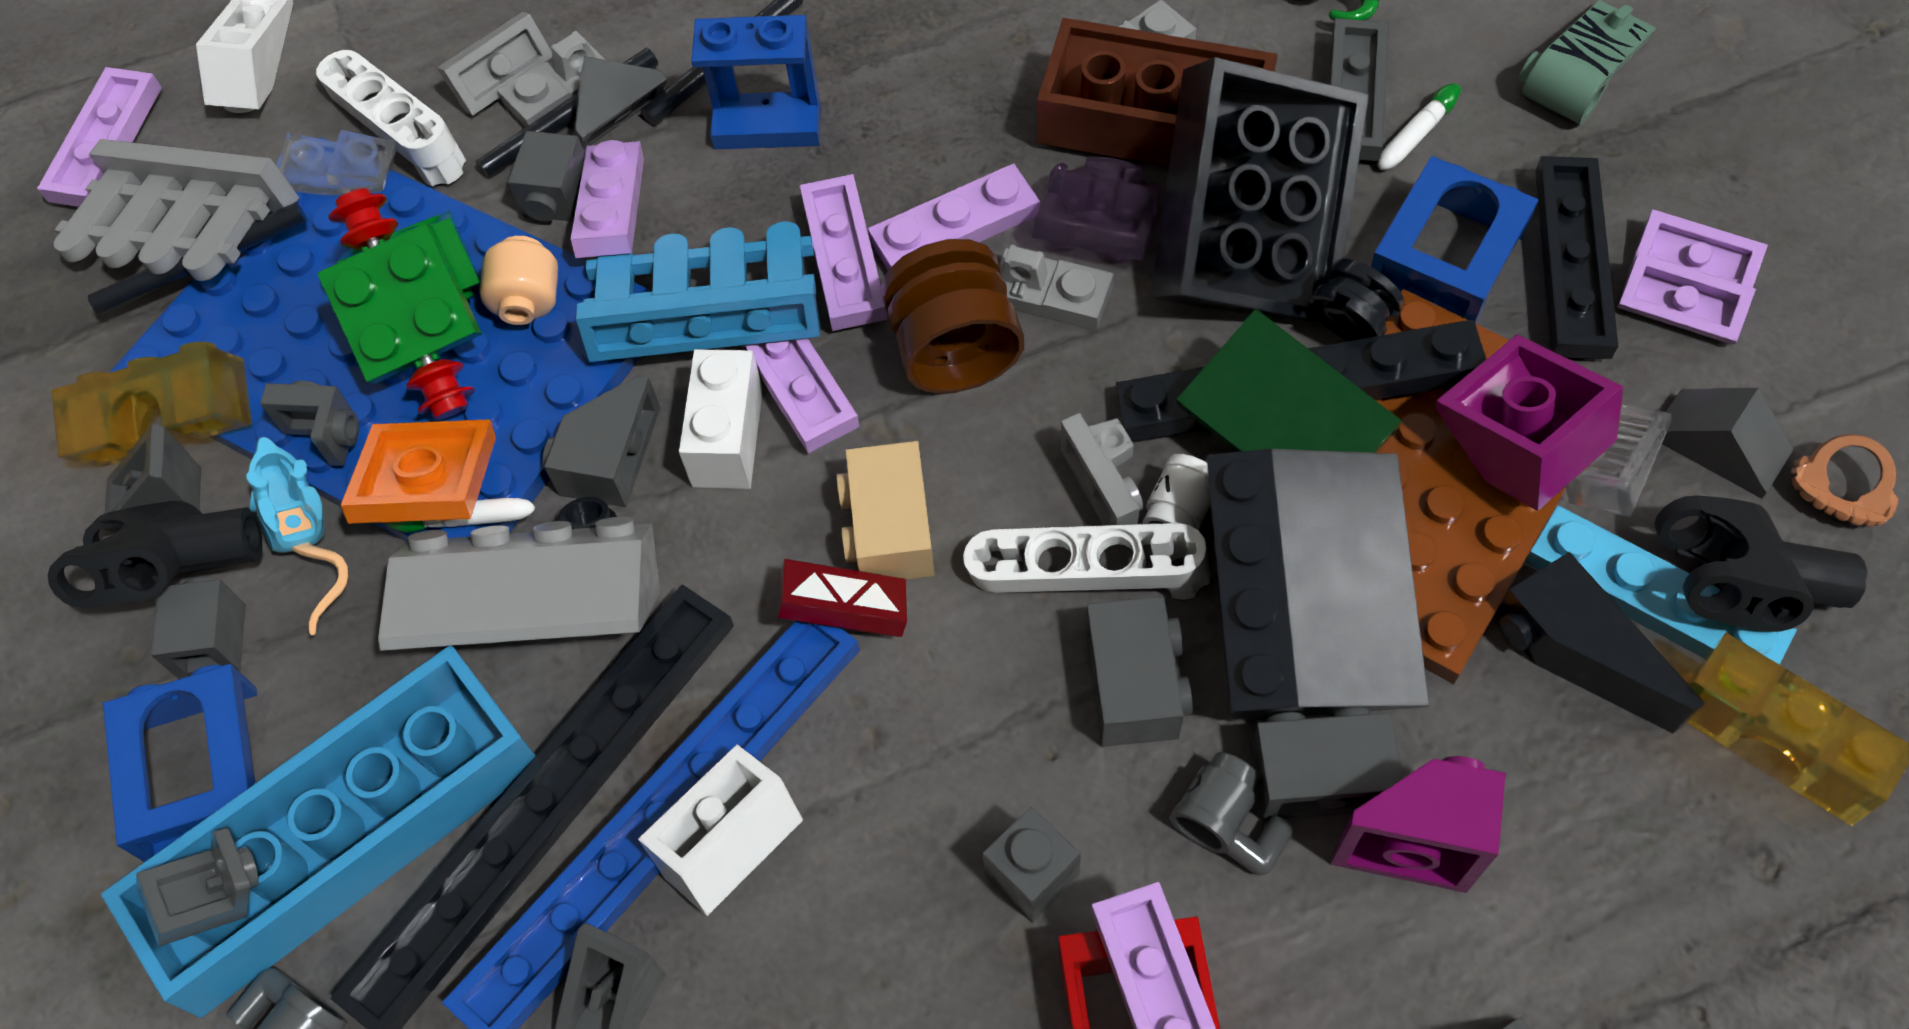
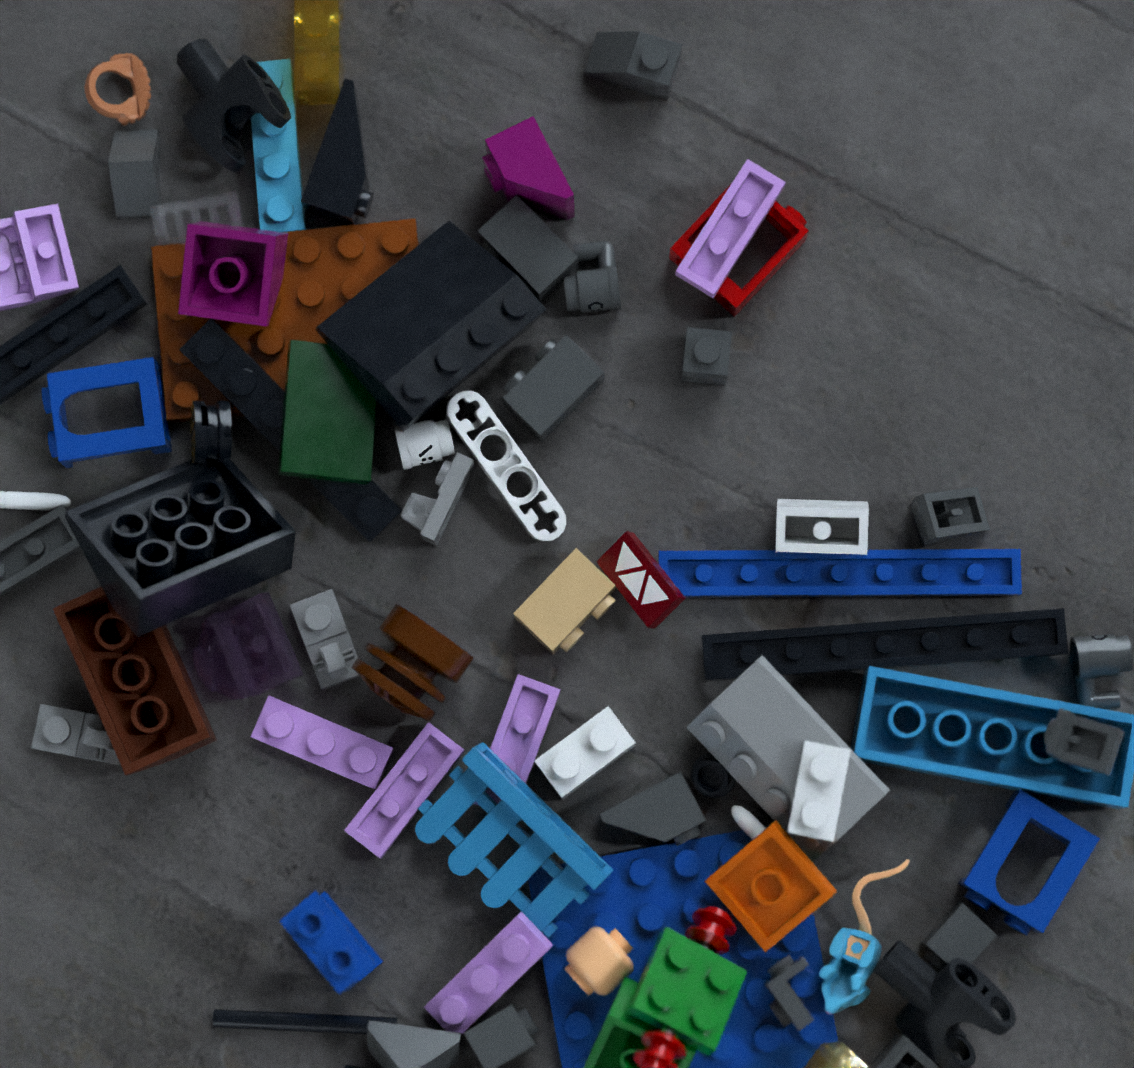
camera: 130 degrees left, 20 degrees up
(448, 570) = (818, 791): none -> white plate

